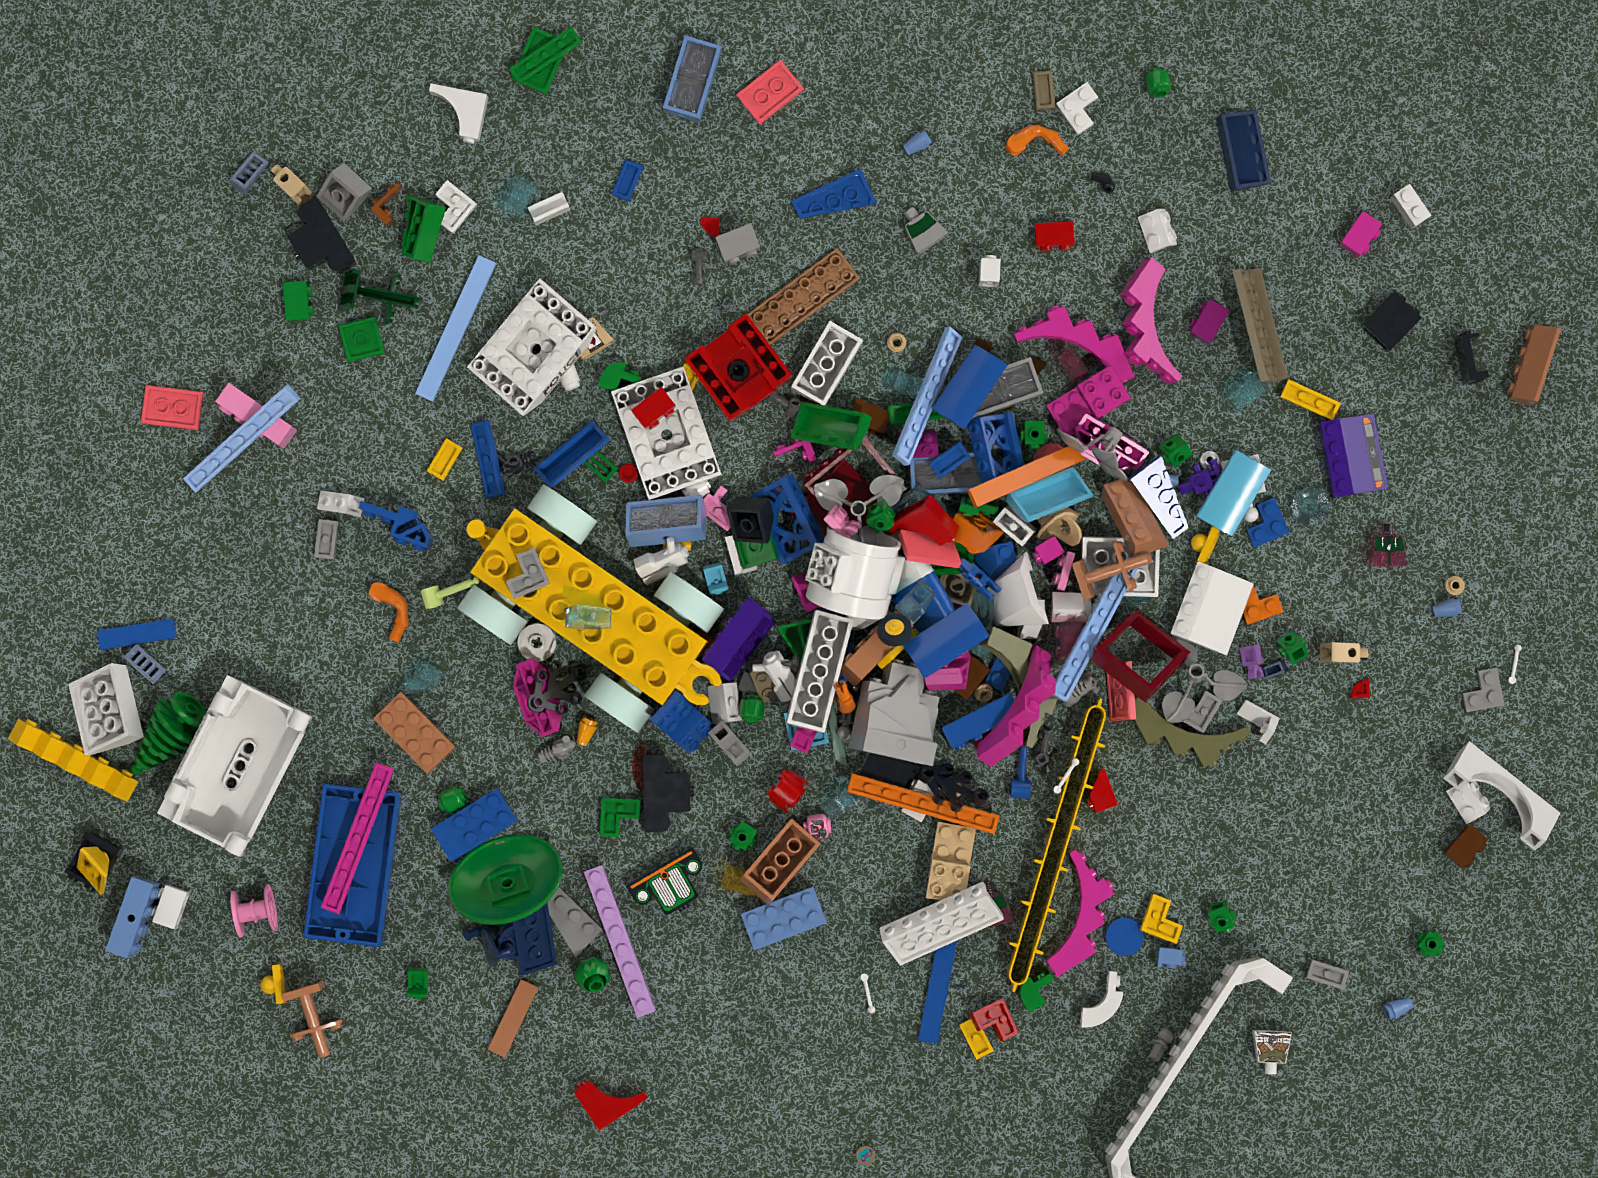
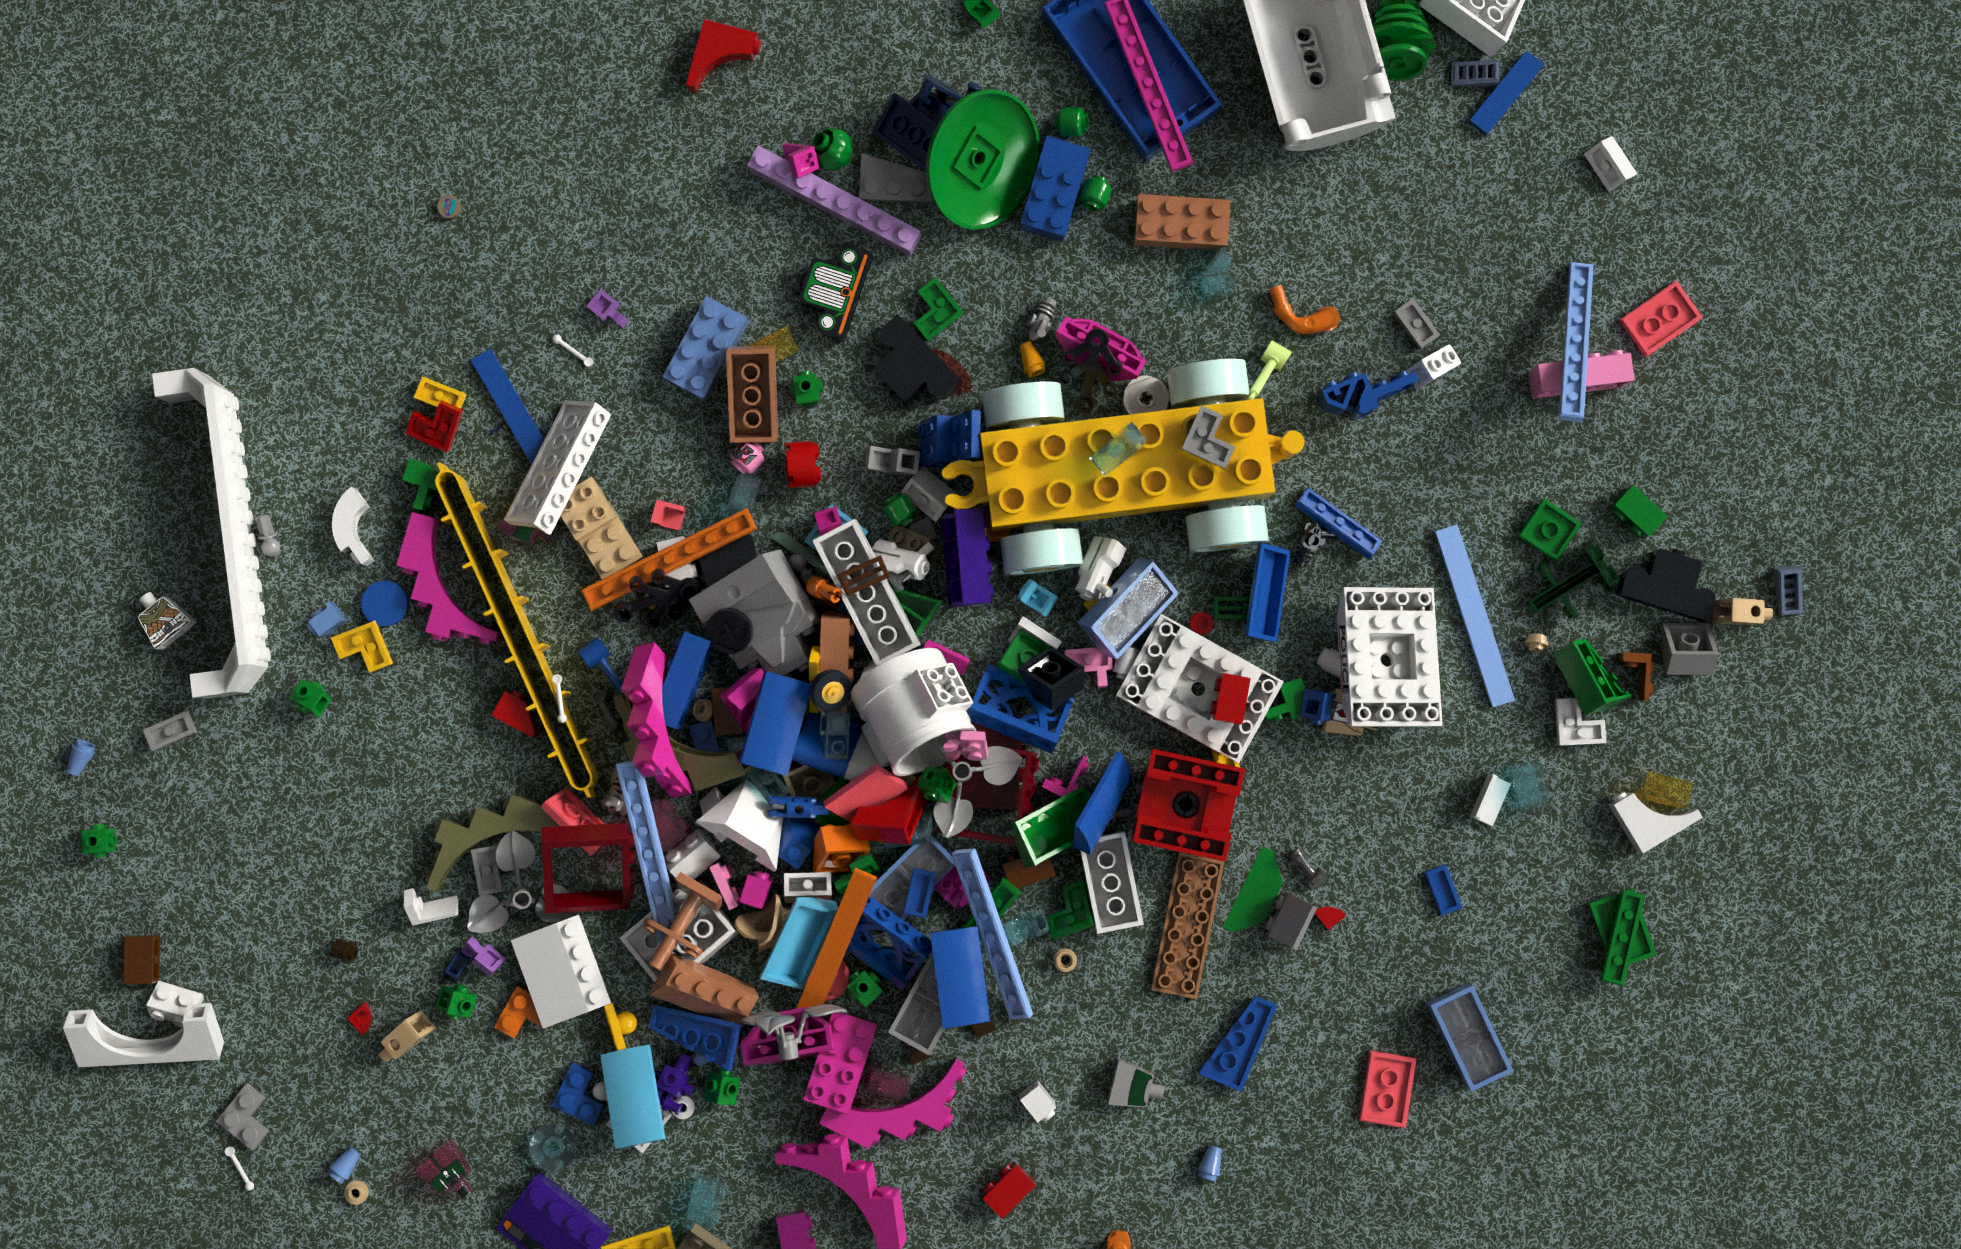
camera: 140 degrees right, 0 degrees up
(113, 531) = (1610, 163): none -> white panel
(426, 858) = (1071, 122): none -> green head
(433, 278) = (1536, 642): none -> tan plate
(437, 119) = (1665, 790): none -> clear yellow panel
(444, 459) = (1376, 489): yellow tile -> none
(513, 1018) = (869, 53): nougat tile -> none
(603, 358) = (1317, 706): none -> blue brick
(617, 984) = (801, 159): none -> dark pink bracket
(743, 279) = (1256, 893): none -> green sticker
(789, 414) = (1102, 804): none -> blue slope
(796, 677) = (882, 567): none -> reddish brown tile
(823, 1002) = (605, 307): none -> medium lavender plate
(863, 363) = (1076, 916): none -> green plate
(899, 834) = (668, 515): none -> coral panel
(924, 723) = (729, 630): none -> black tile
(1335, 740) = (344, 950): none -> dark brown hose

